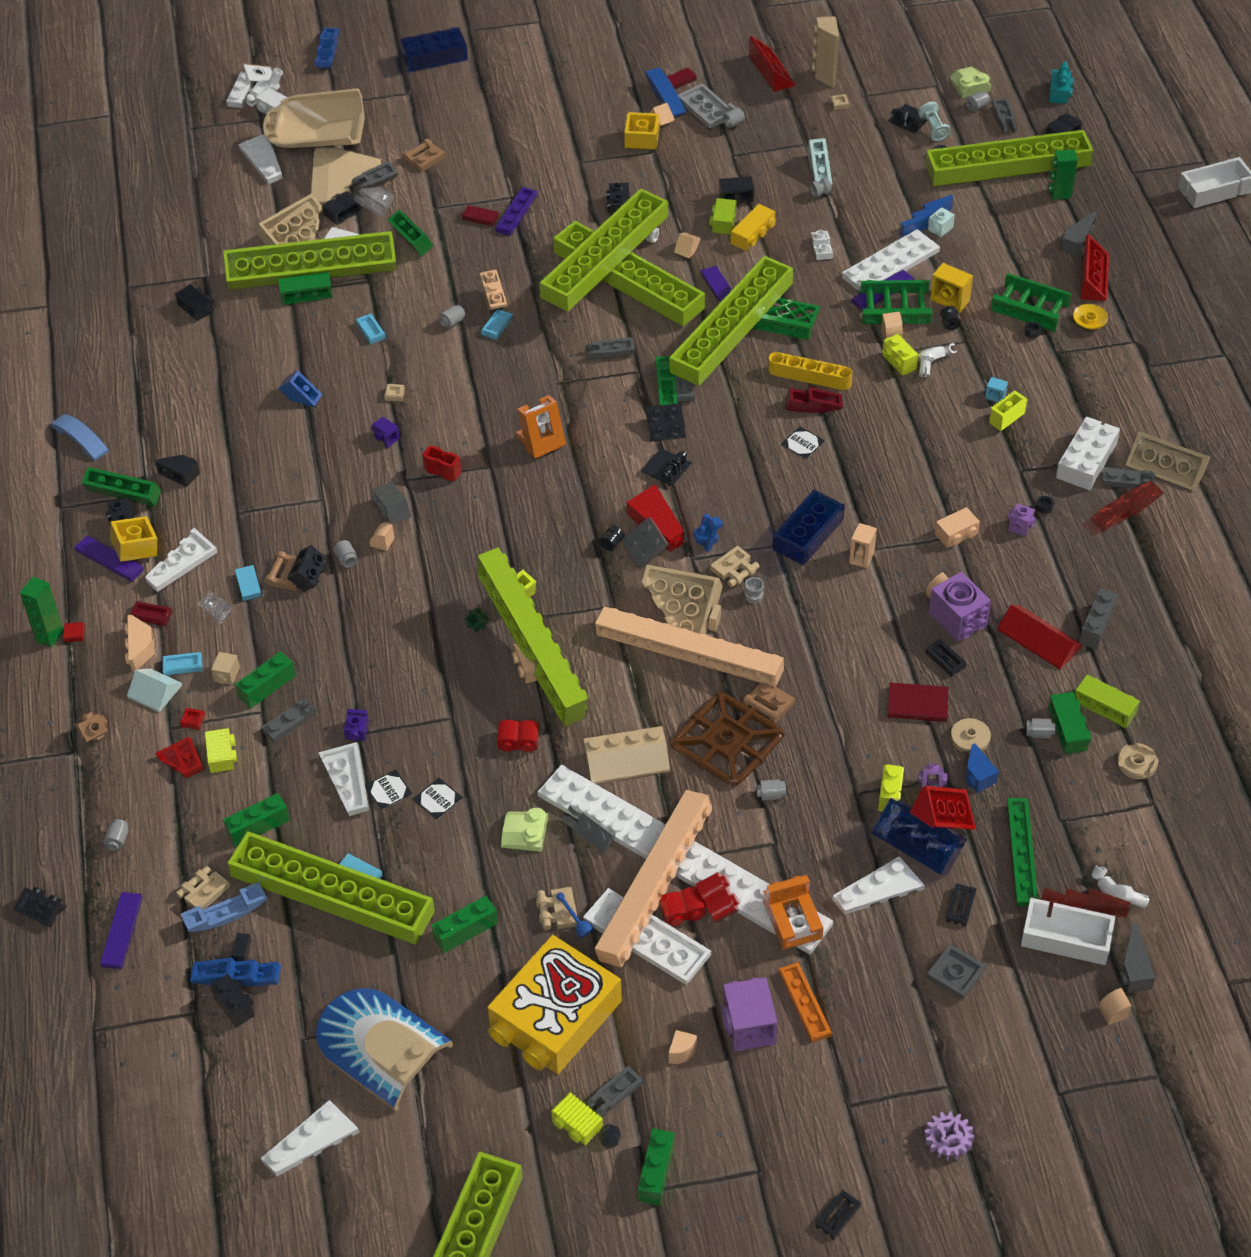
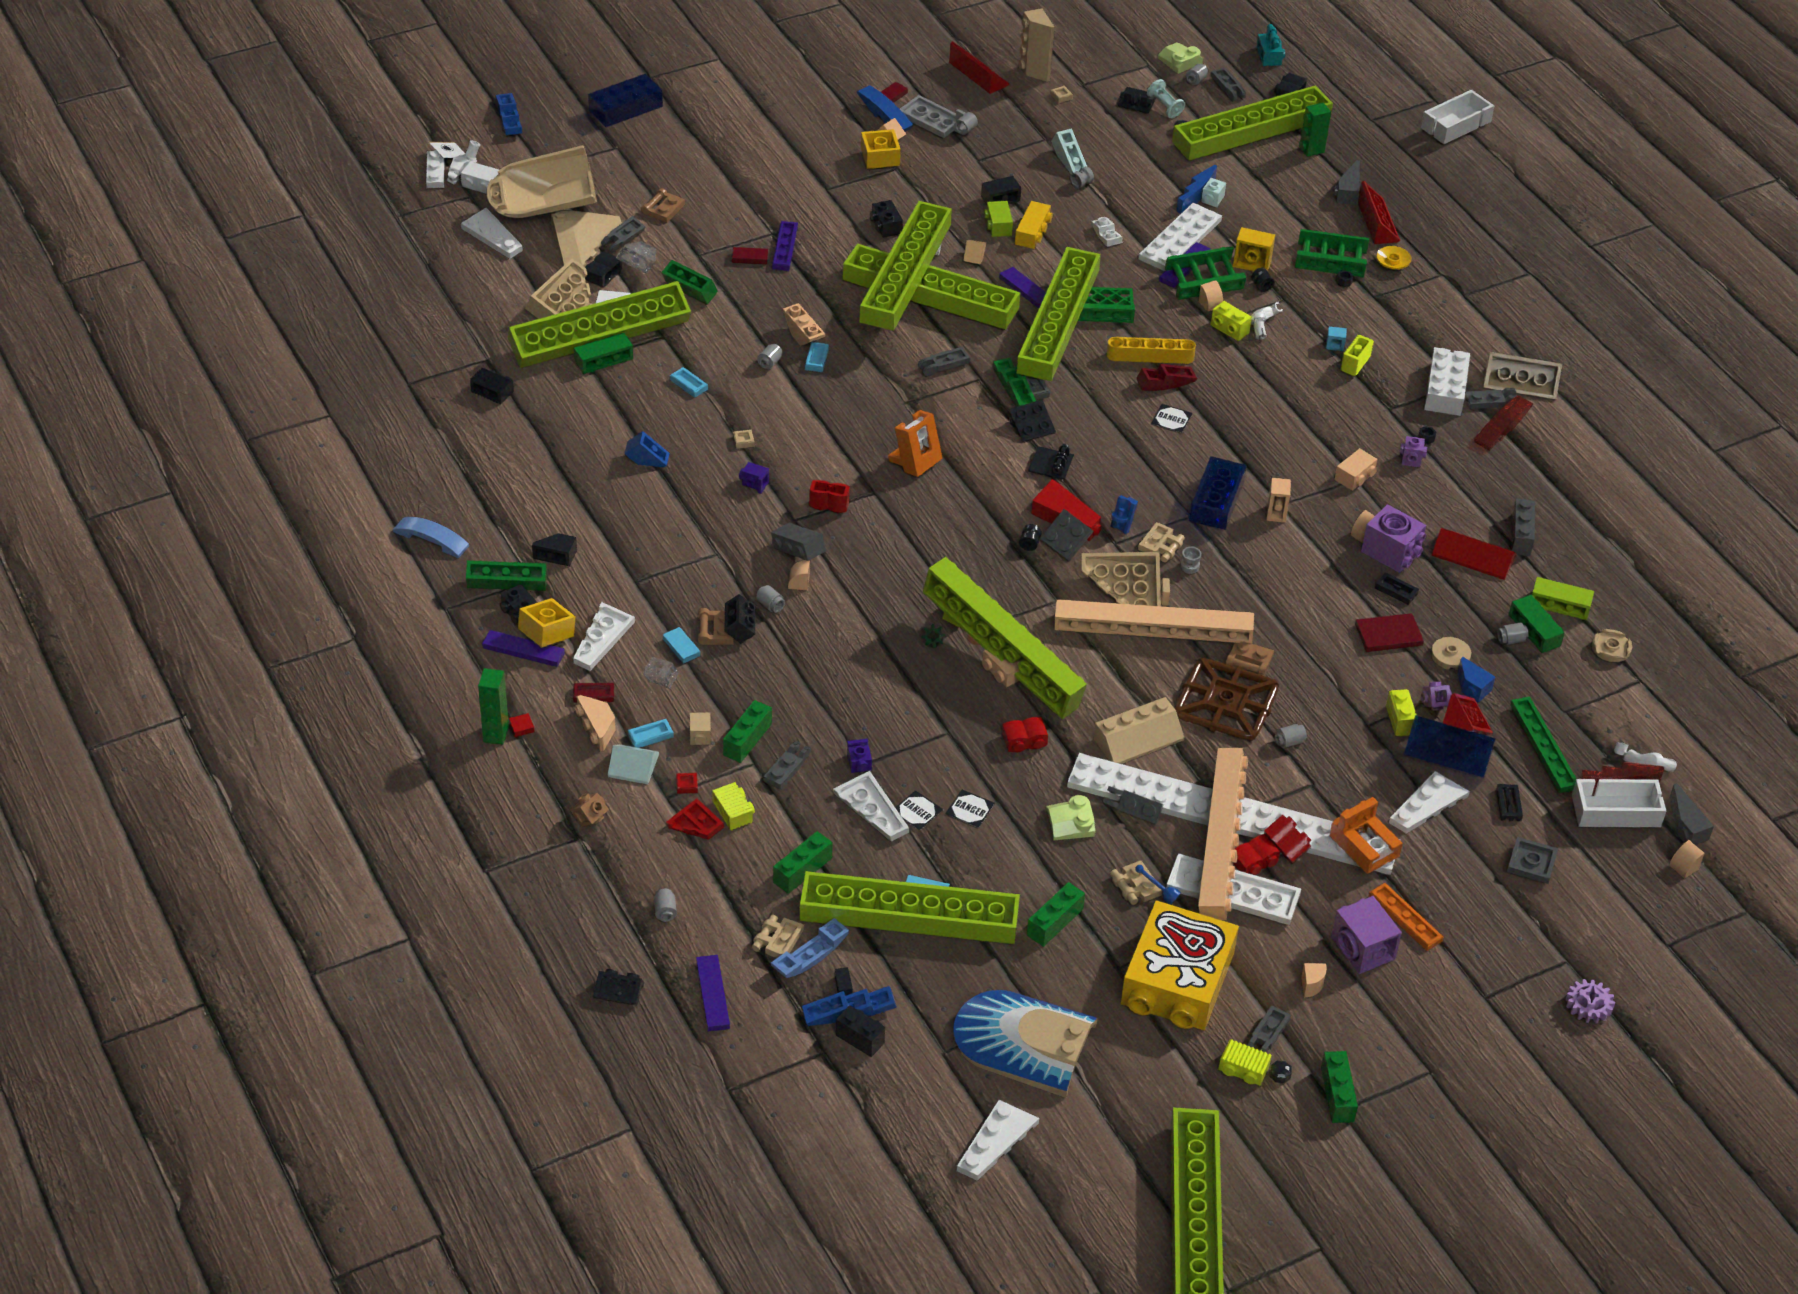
camera: 20 degrees left, 5 degrees down
(827, 1229) = (1516, 1105): black tile -> none

